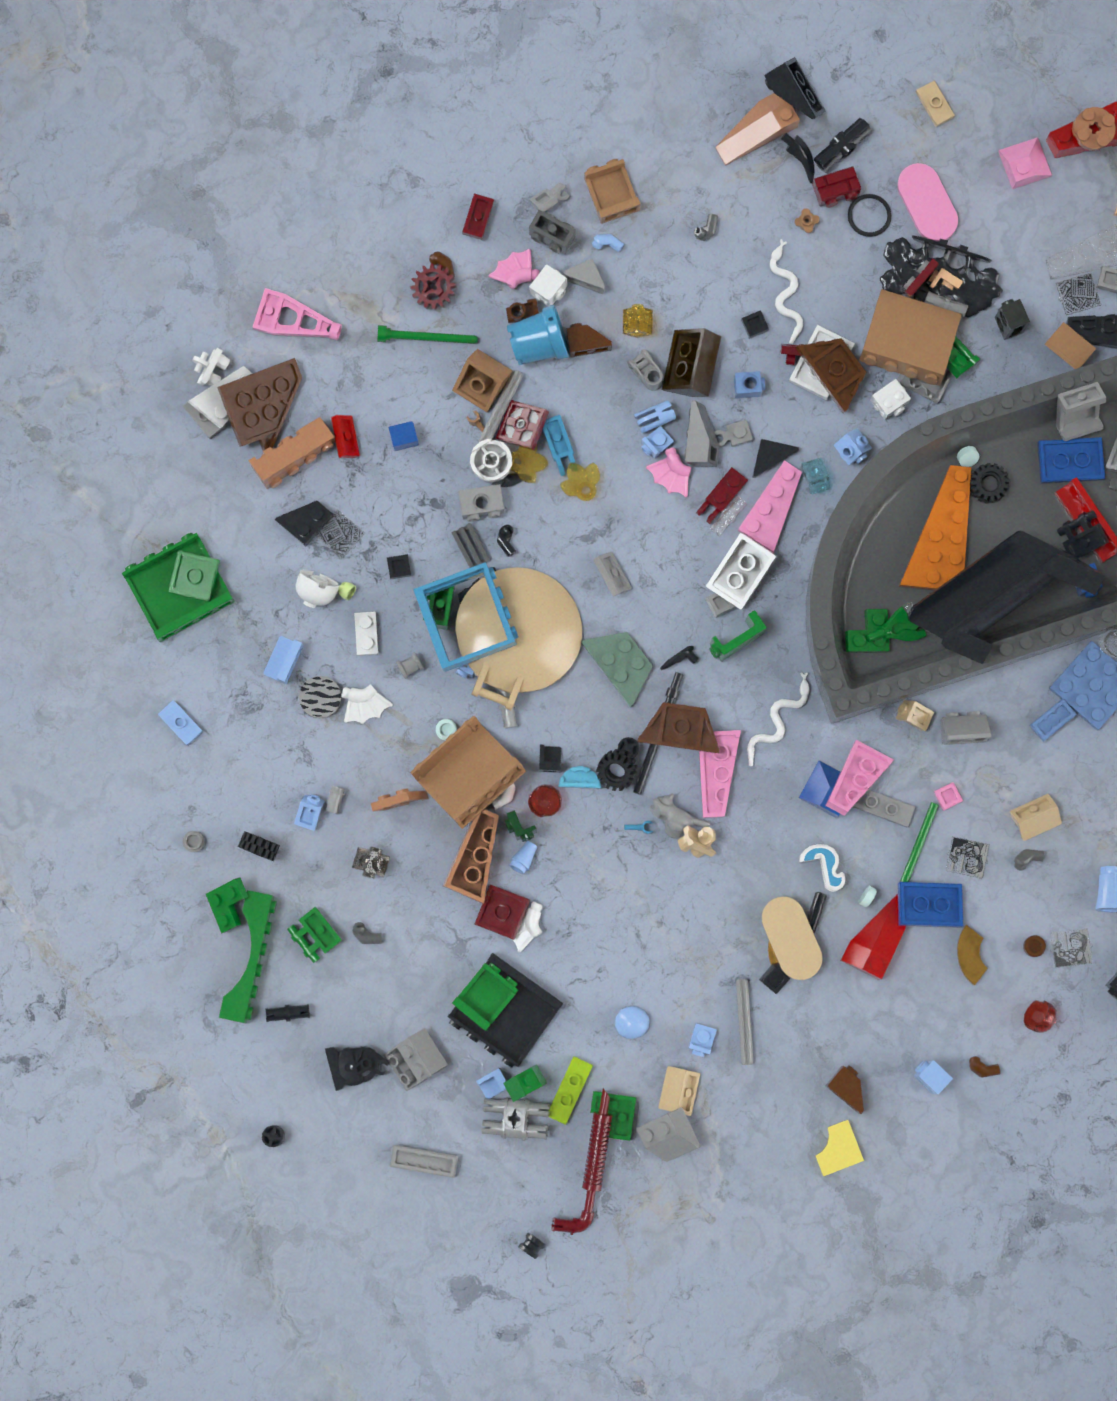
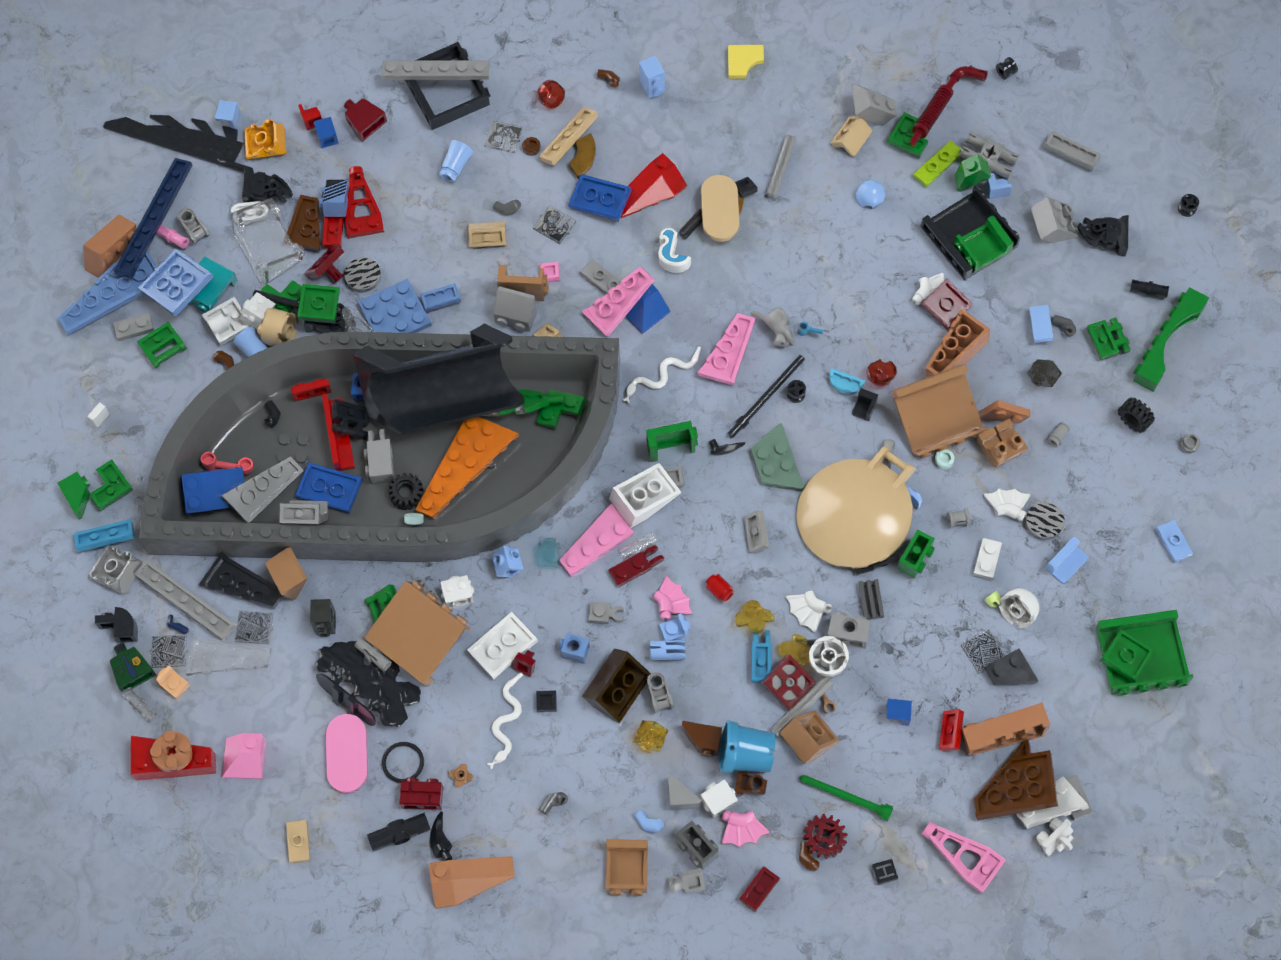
camera: 155 degrees left, 15 degrees down
(222, 903) = (1177, 384): green plate -> none
(309, 811) = (1082, 432): light blue bracket -> none
(364, 277) = (885, 871): none -> black tile
(389, 754) = (1001, 443): none -> medium nougat hips
(392, 924) = (1041, 323): none -> light blue slope
(398, 566) = (940, 604): black tile -> none
(452, 580) = (908, 490): dark azure window -> none
(504, 538) = (839, 594): black arm -> none
(514, 825) = (909, 350): dark green bracket -> none
(522, 859) = (915, 337): light blue cone -> none
(530, 513) = (808, 609): none -> white arm
(611, 779) = (812, 374): black tyre -> none
(627, 500) = (719, 588): none -> red brick
(681, 728) = (747, 387): reddish brown wing -> none
(698, 841) = (767, 298): tan hips -> none
(701, 440) = (635, 611): slope -> none
(702, 1040) = (820, 163): light blue bracket -> none
(771, 454) = (580, 584): black tile -> none
(793, 87) = (421, 894): black slope -> none
(835, 369) = (494, 629): reddish brown wing -> none
(847, 1087) = (720, 95): reddish brown slope -> none
(867, 896) = (647, 219): light aqua tile -> none
(919, 842) = (593, 241): green bar -> none
(924, 270) = (386, 676): dark red piece -> none
(949, 280) = (363, 673): light nougat bracket -> none
(988, 752) = (530, 285): none -> medium nougat panel
(997, 971) = (568, 136): none -> tan plate
(1033, 508) = (379, 458): none -> light grey hinge

